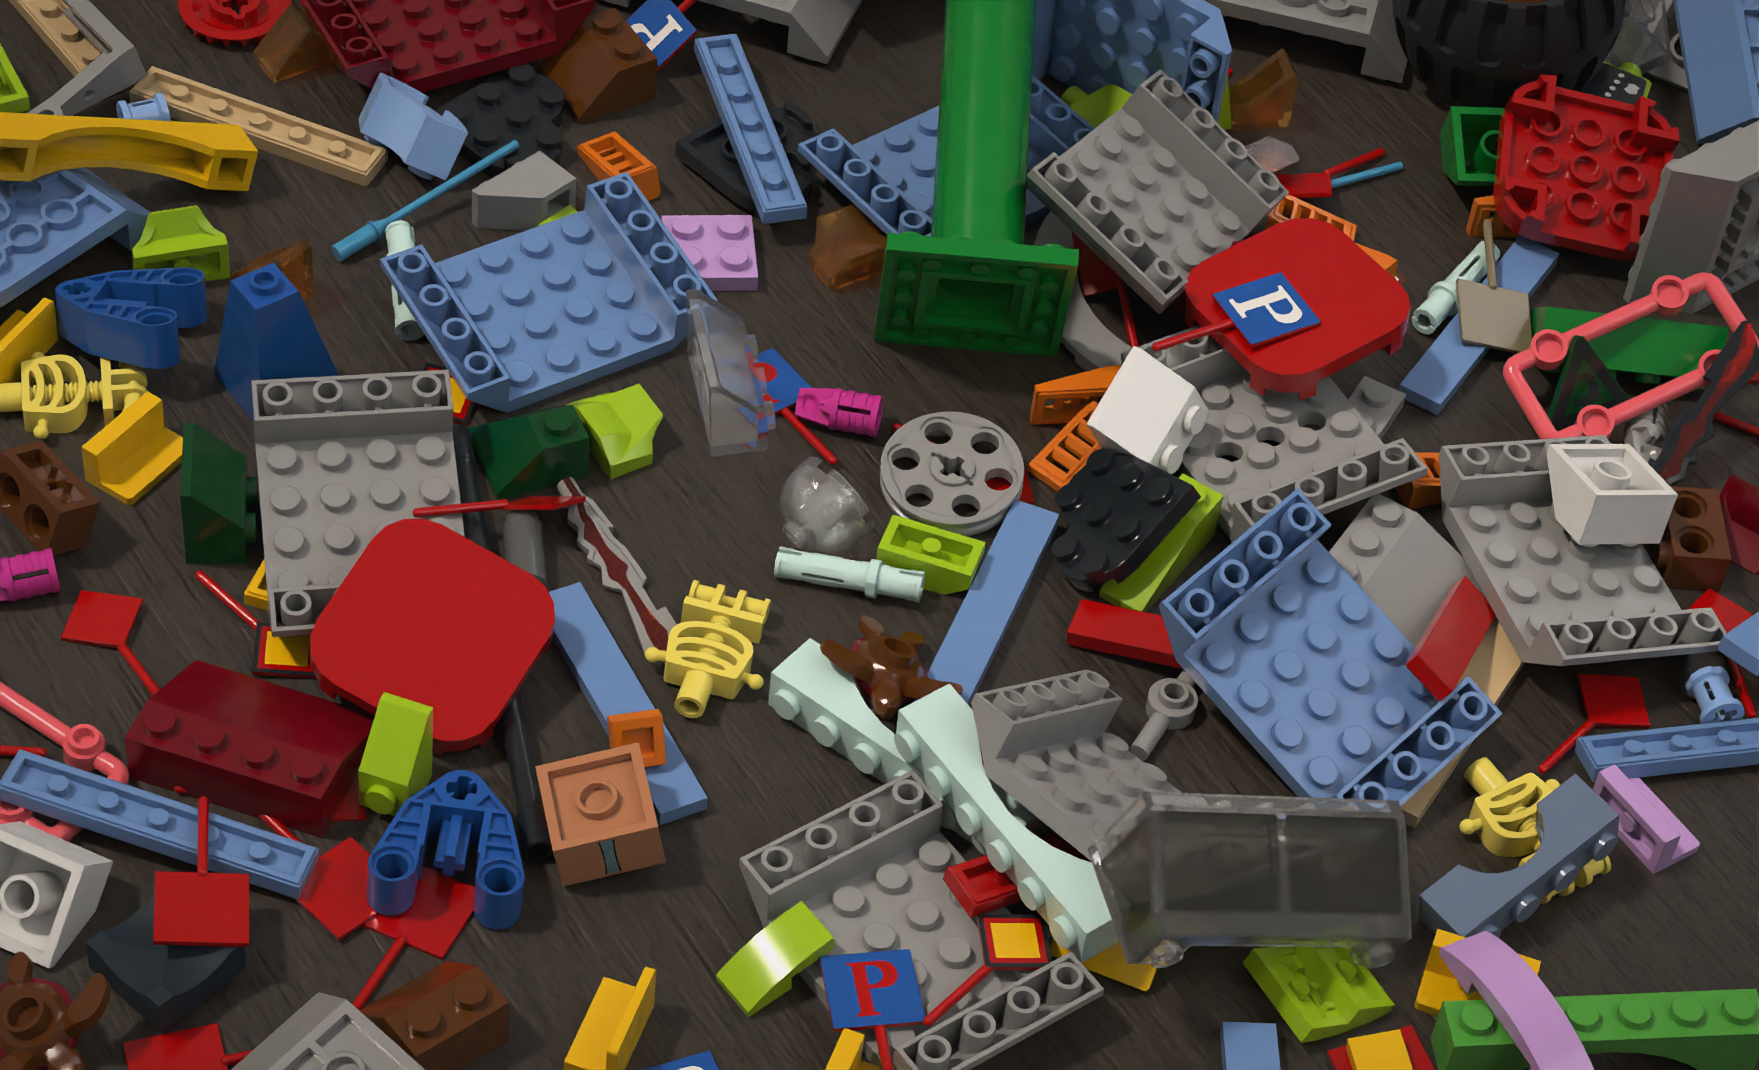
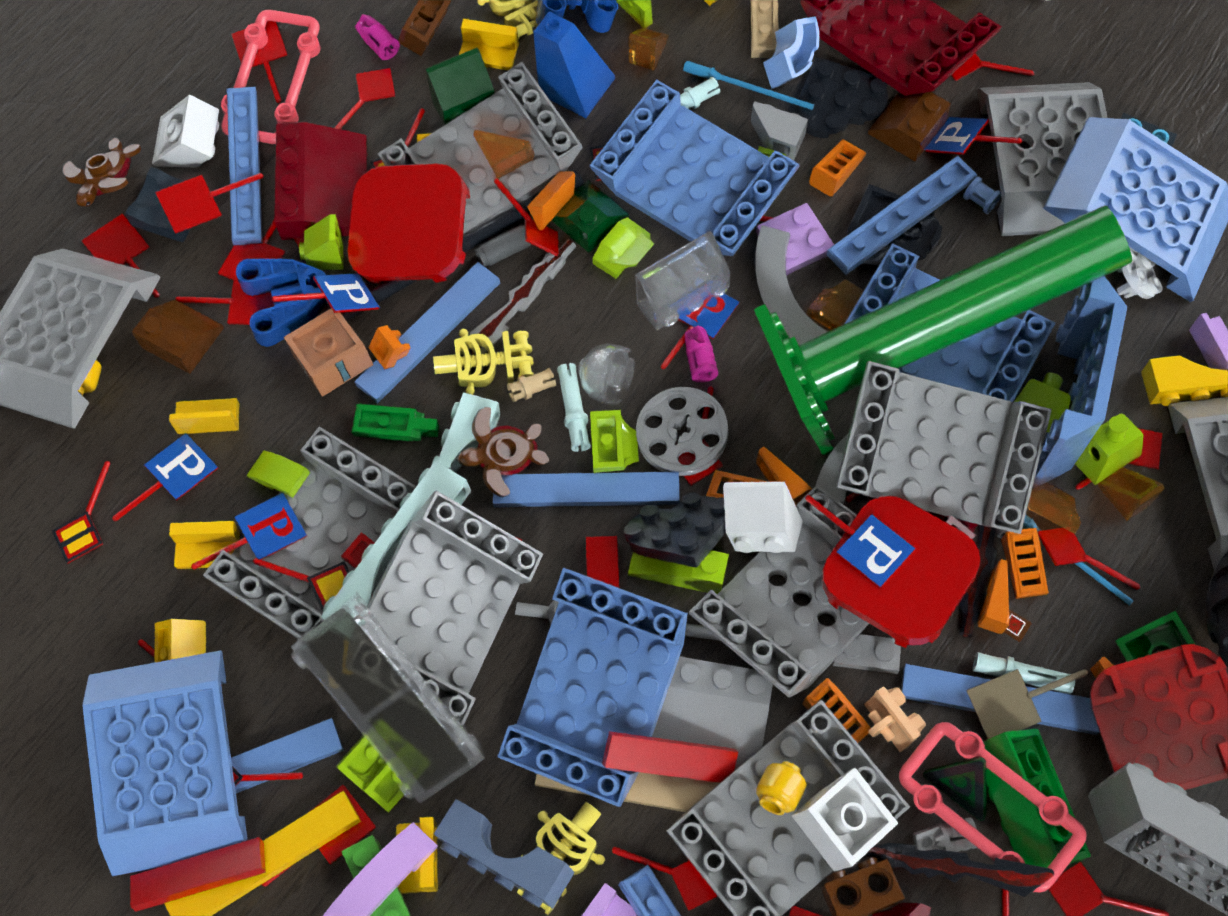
camera: 75 degrees right, 20 degrees up
(383, 475) = (503, 152): none -> clear orange slope
(497, 451) = (552, 198): none -> orange slope
(507, 757) = (341, 291): none -> blue piece
(760, 792) = (392, 423): none -> green hinge
(765, 49) = (982, 195): none -> light blue bush
(784, 294) = (774, 286): none -> light grey tile
(786, 613) = (527, 386): none -> tan pin
(1470, 421) = (891, 720): none -> light nougat hips
(1543, 534) = (781, 788): none -> yellow head

